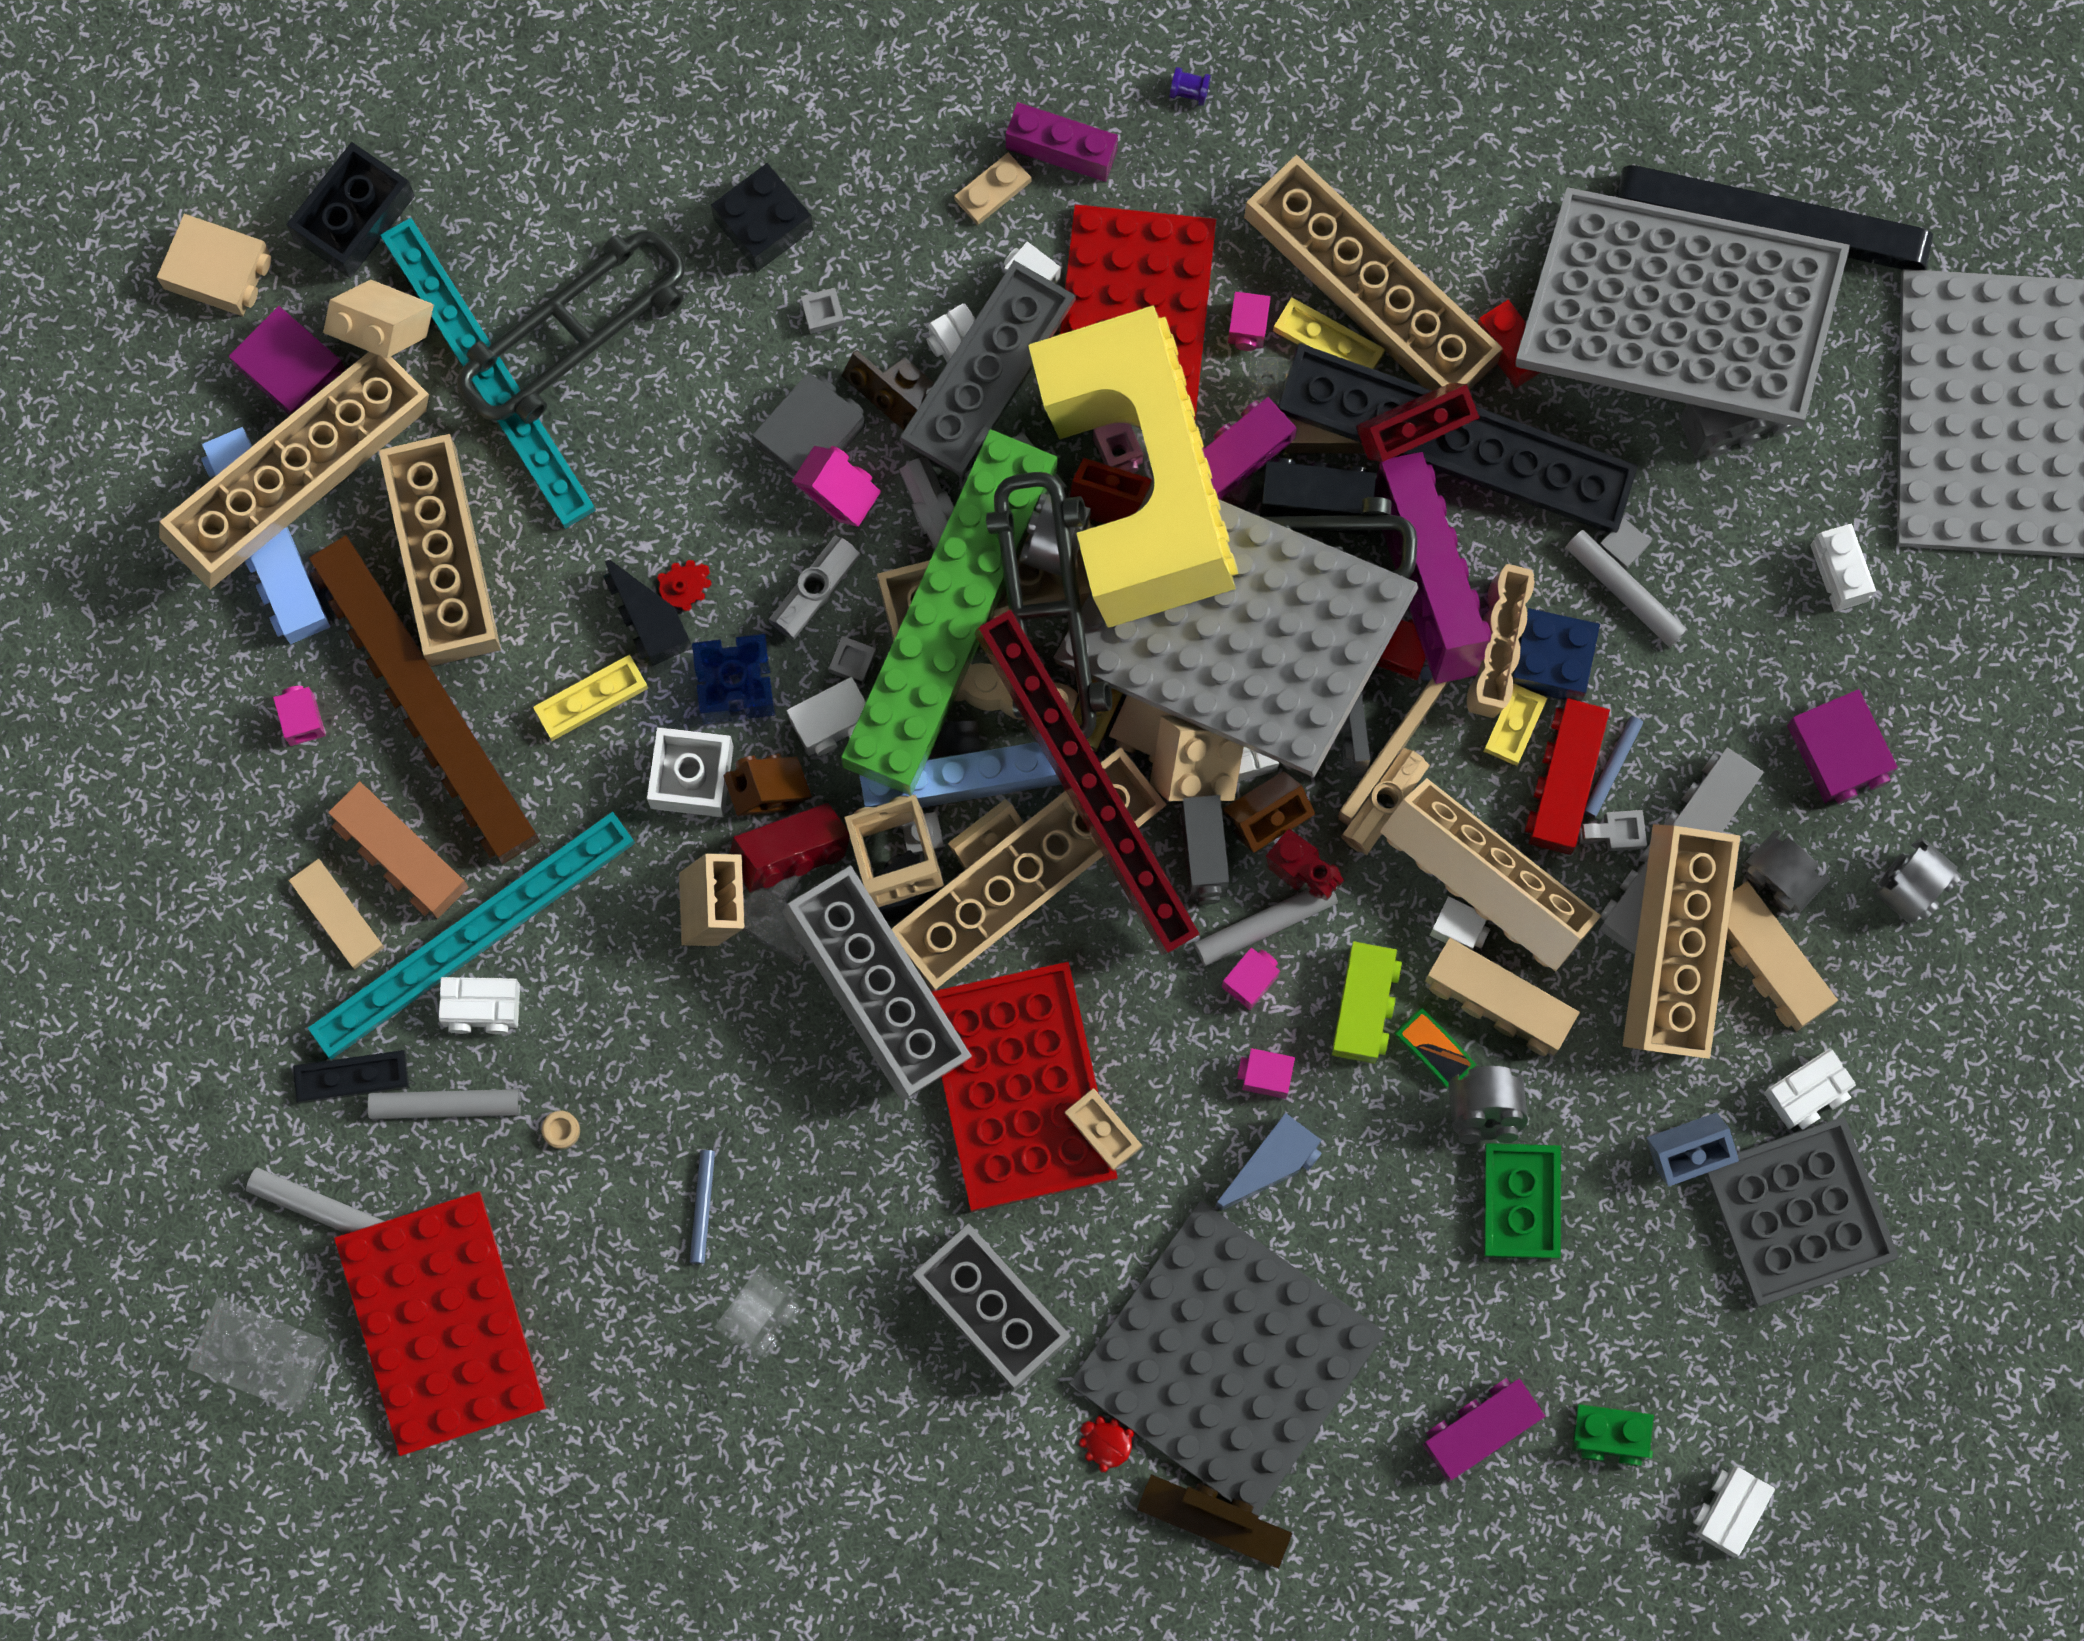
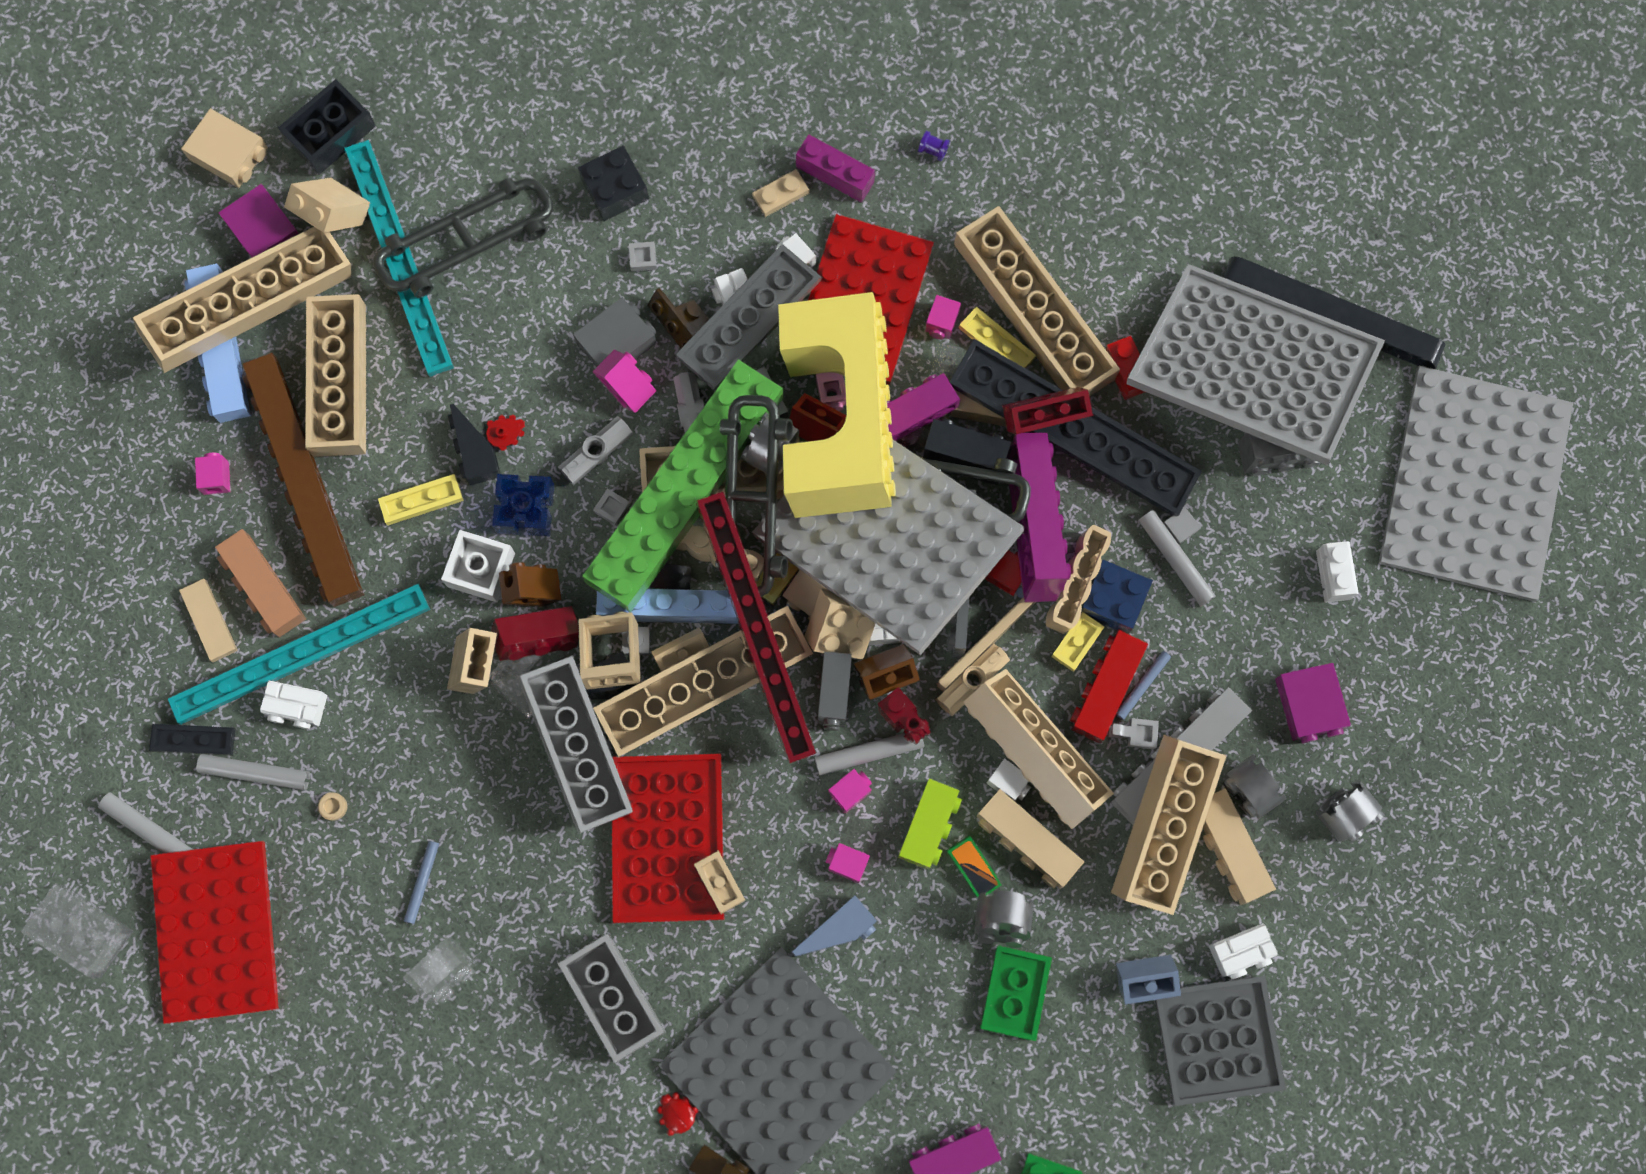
camera: 10 degrees right, 0 degrees up
(827, 717) = (583, 544): white brick -> none

